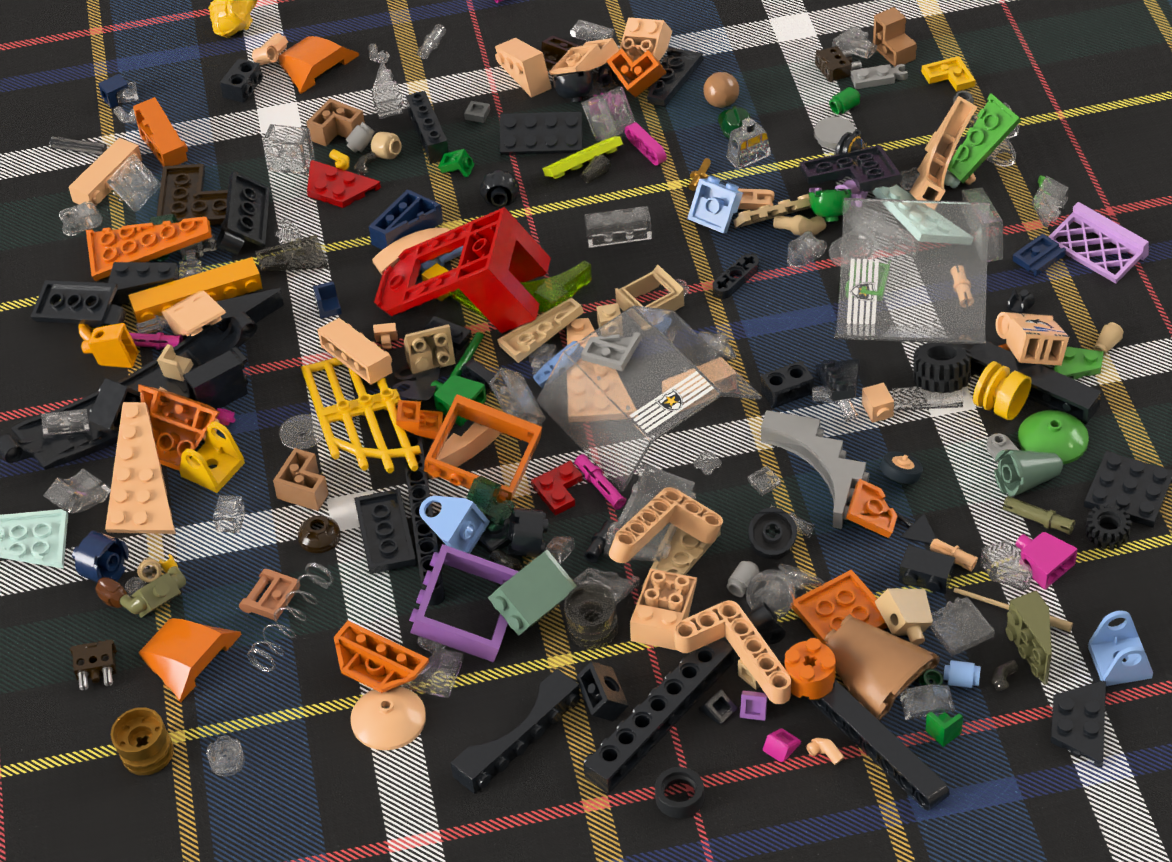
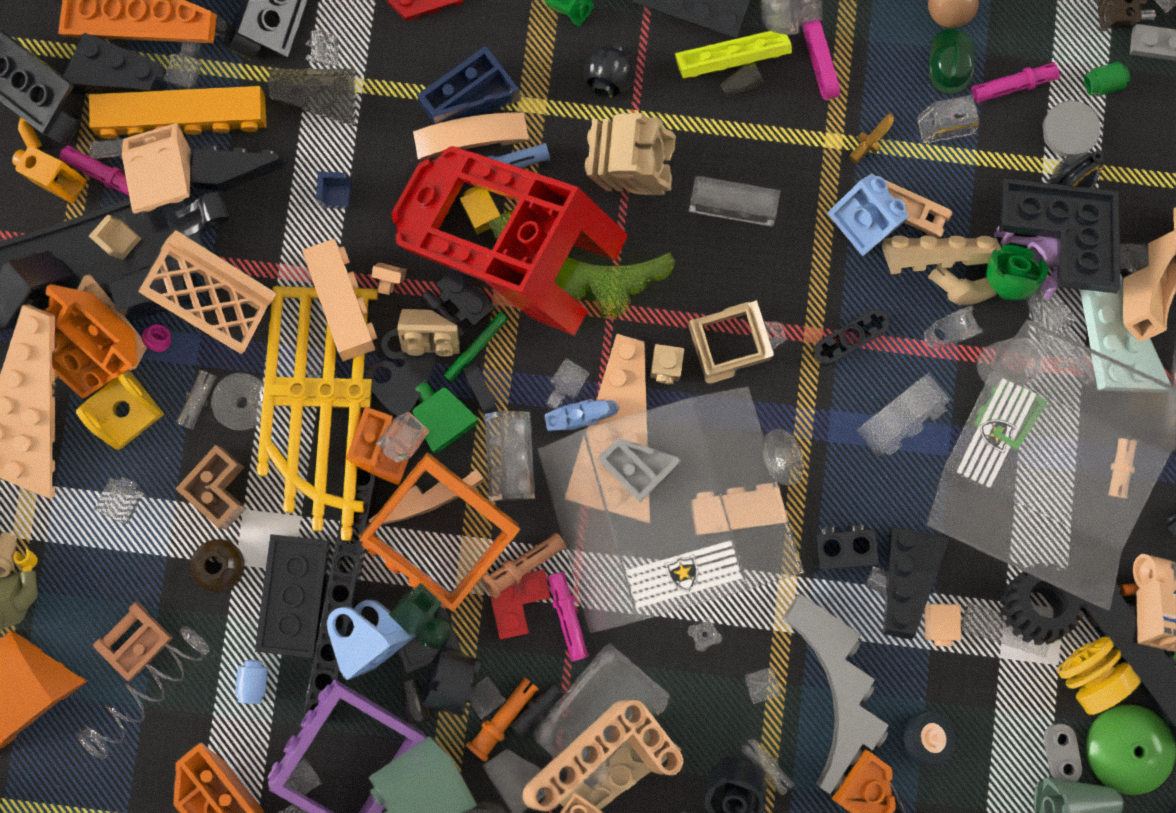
camera: 15 degrees right, 35 degrees up
(258, 360) = (214, 271): none -> light nougat fence
(267, 442) = (196, 399): none -> clear pin
(372, 589) = (251, 682): none -> light blue brick
(433, 403) = (402, 437): none -> clear brick
(532, 335) = (556, 353): tan wing -> none
(538, 211) = (630, 154): none -> tan piece
(547, 460) = (512, 572): none -> nougat pin
(573, 561) = (493, 730): none -> orange pin
(790, 116) = (1026, 79): none -> dark pink pin
(792, 302) = (904, 416): none -> clear brick

